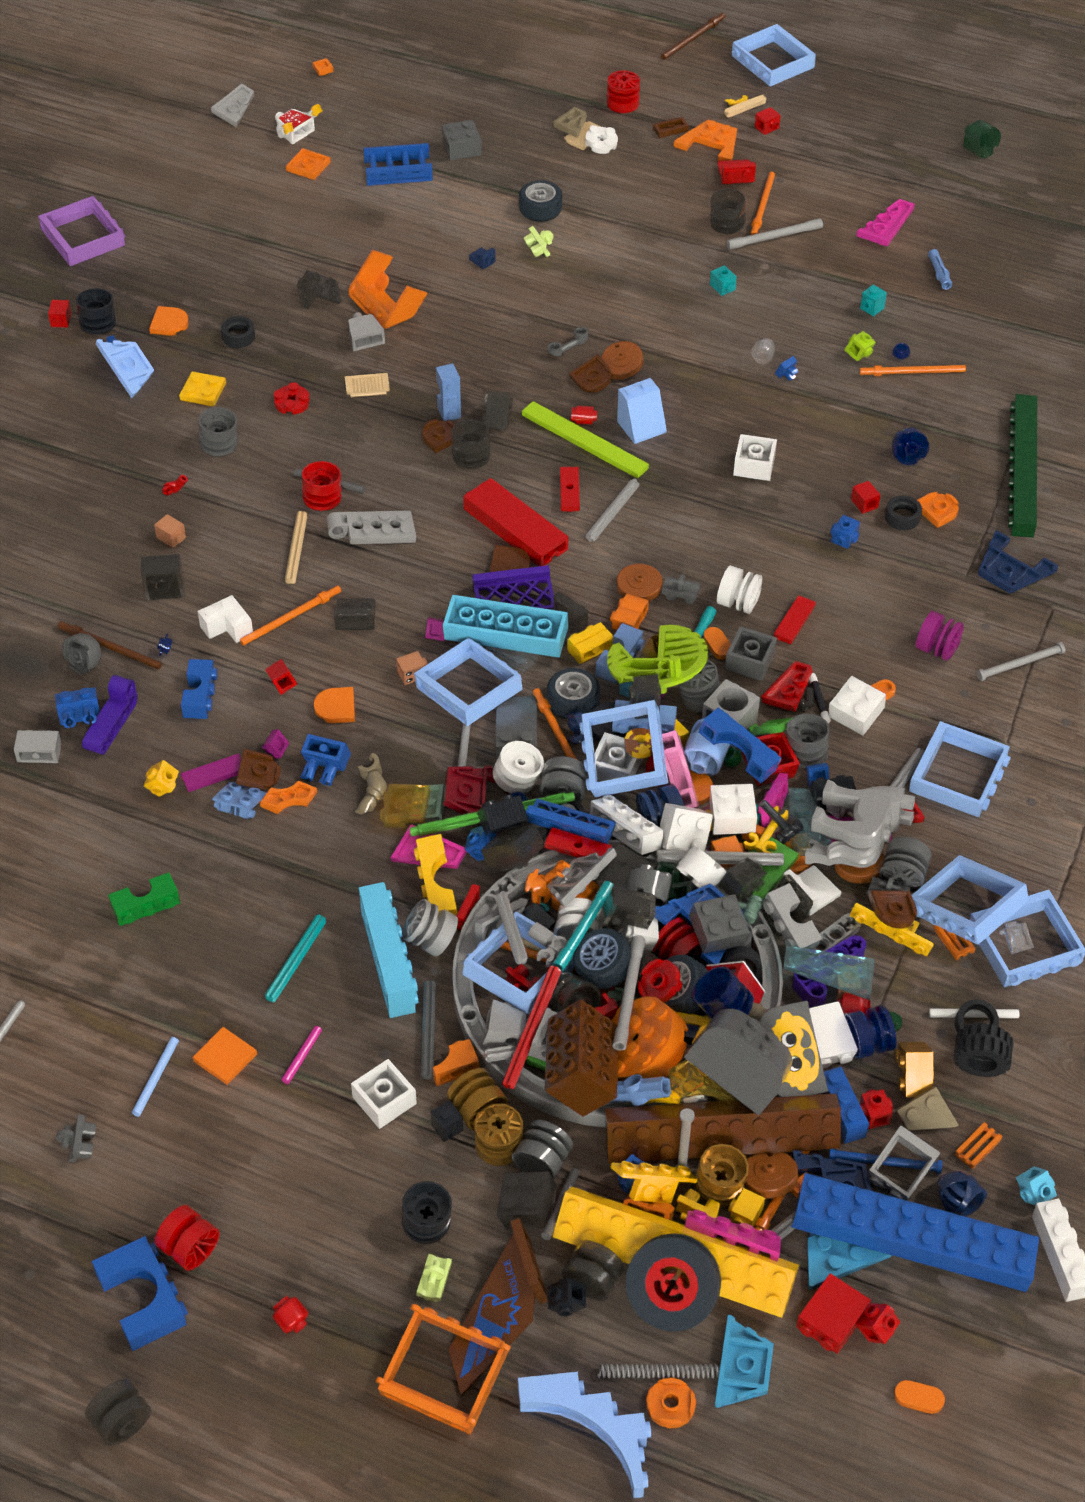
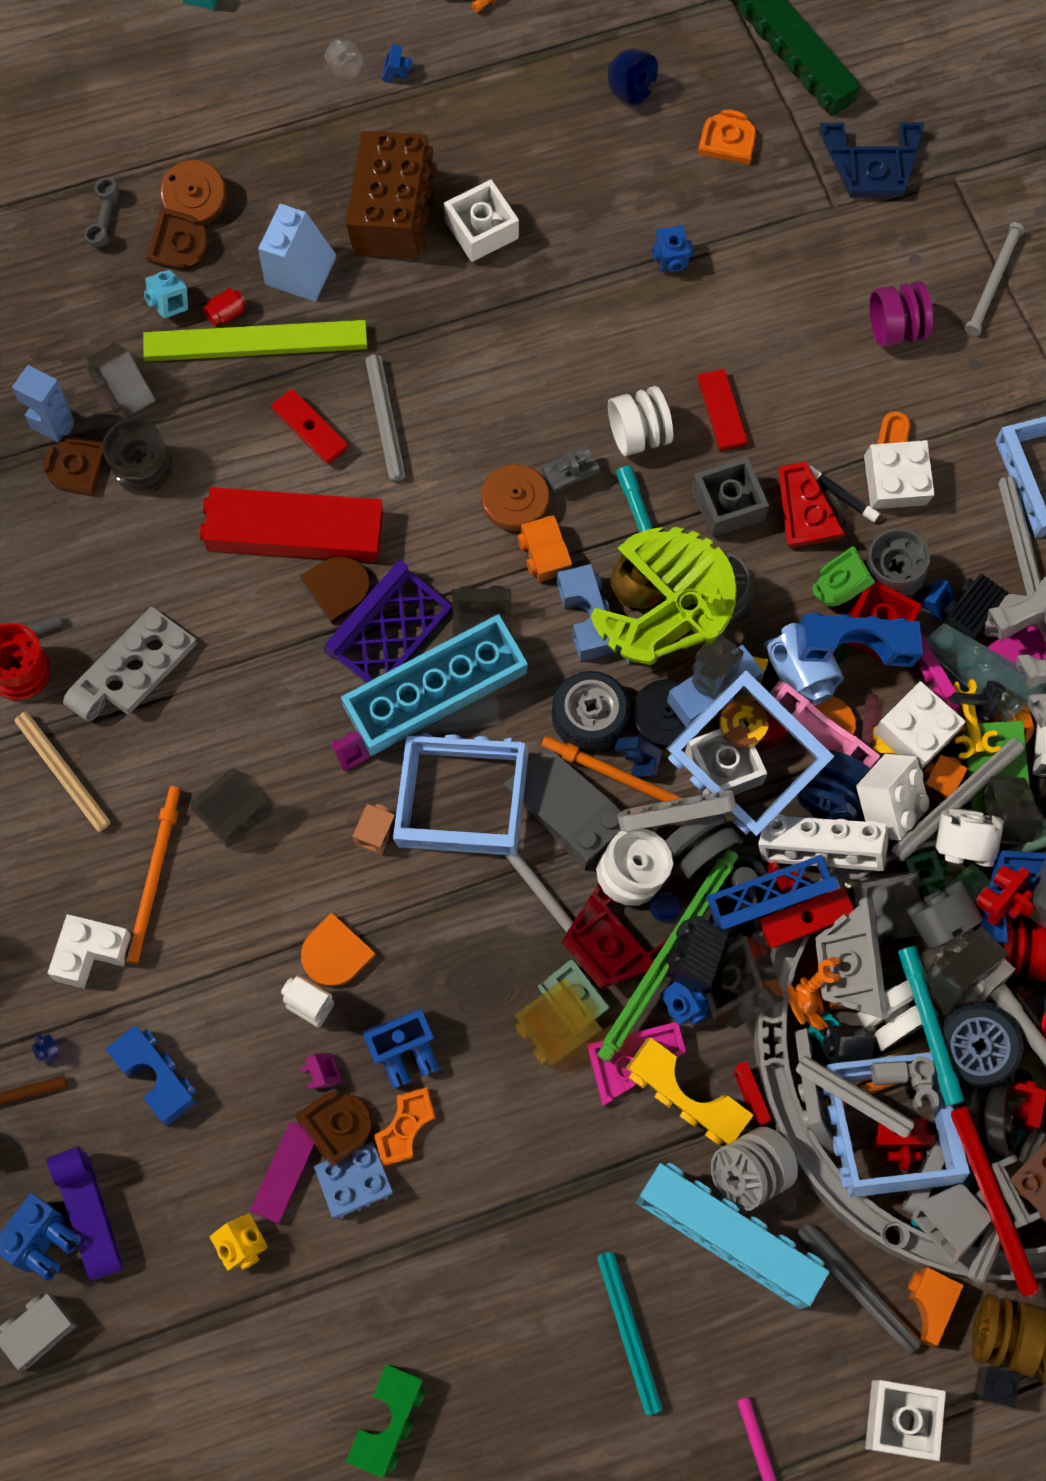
camera: 45 degrees left, 20 degrees up
(281, 676) = (237, 975): red brick -> none
(299, 707) = (307, 1000): none -> white brick
(375, 783) = (496, 1027): dark tan piece -> none
(560, 390) = (166, 293): none -> medium azure brick
(560, 747) = (676, 810): none -> light grey beam
(589, 642) = (540, 624): yellow brick -> none
(685, 896) = (1013, 884): none -> red hips
(716, 642) = (672, 508): orange tile -> none
(717, 416) = (391, 195): none -> reddish brown brick
(735, 701) = (798, 574): light grey brick -> none
(865, 497) = (644, 182): red brick -> none
(903, 502) = (708, 156): black tyre -> none

